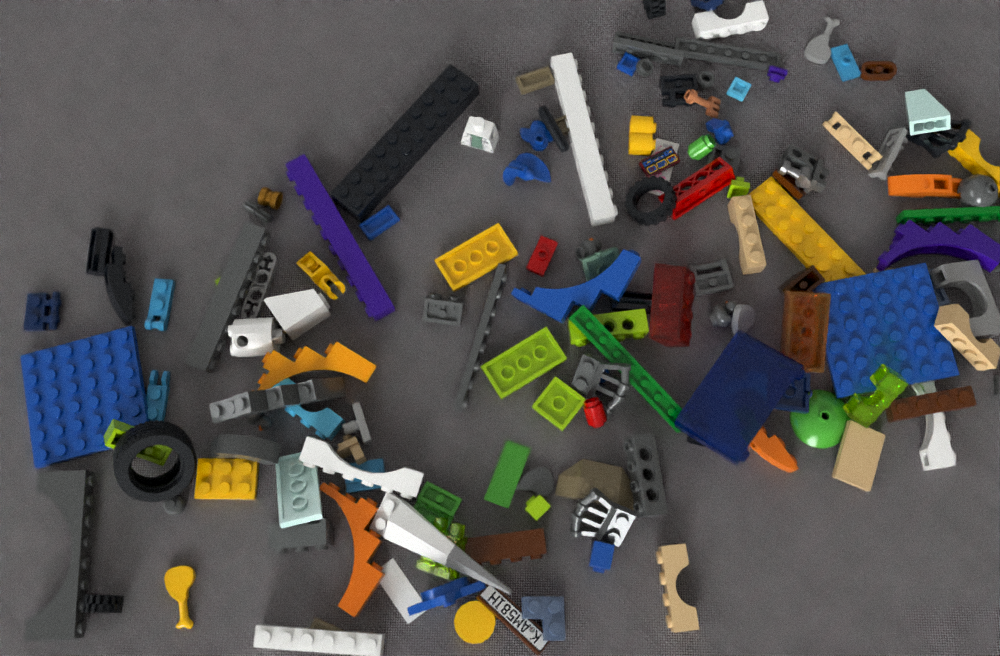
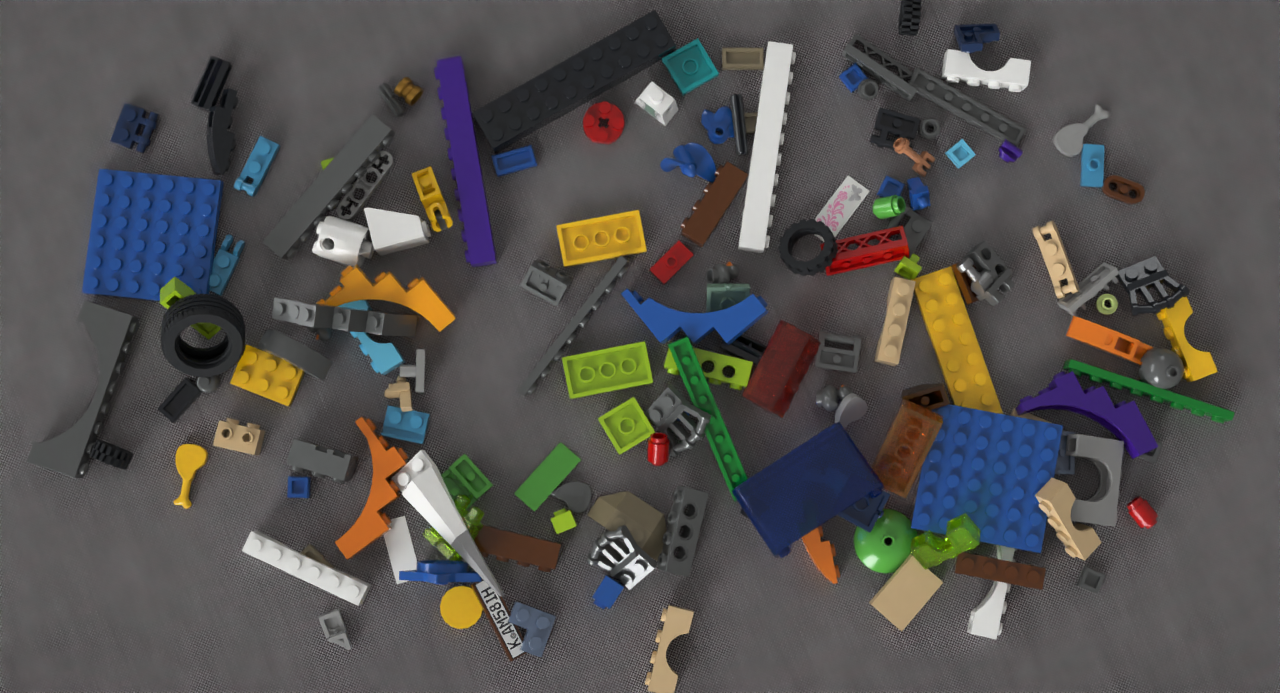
camera: 20 degrees right, 10 degrees up
(153, 530) = (180, 400): none -> black tile
(218, 543) = (238, 437): none -> tan brick
(288, 568) = (298, 487): none -> blue tile
(297, 491) = (335, 414): light aqua plate -> none
(321, 454) = (369, 389): white arch -> none
(440, 157) = (603, 111): none -> red plate
(495, 100) = (690, 67): none -> teal plate
(559, 196) = (714, 204): none -> reddish brown brick
(641, 135) = (830, 168): yellow brick -> none
(659, 162) = (838, 205): tile -> none
(694, 133) = (890, 187): none -> blue tile
(906, 165) = (1102, 308): none -> yellowish green plate
(925, 113) = (1144, 260): light aqua slope -> none

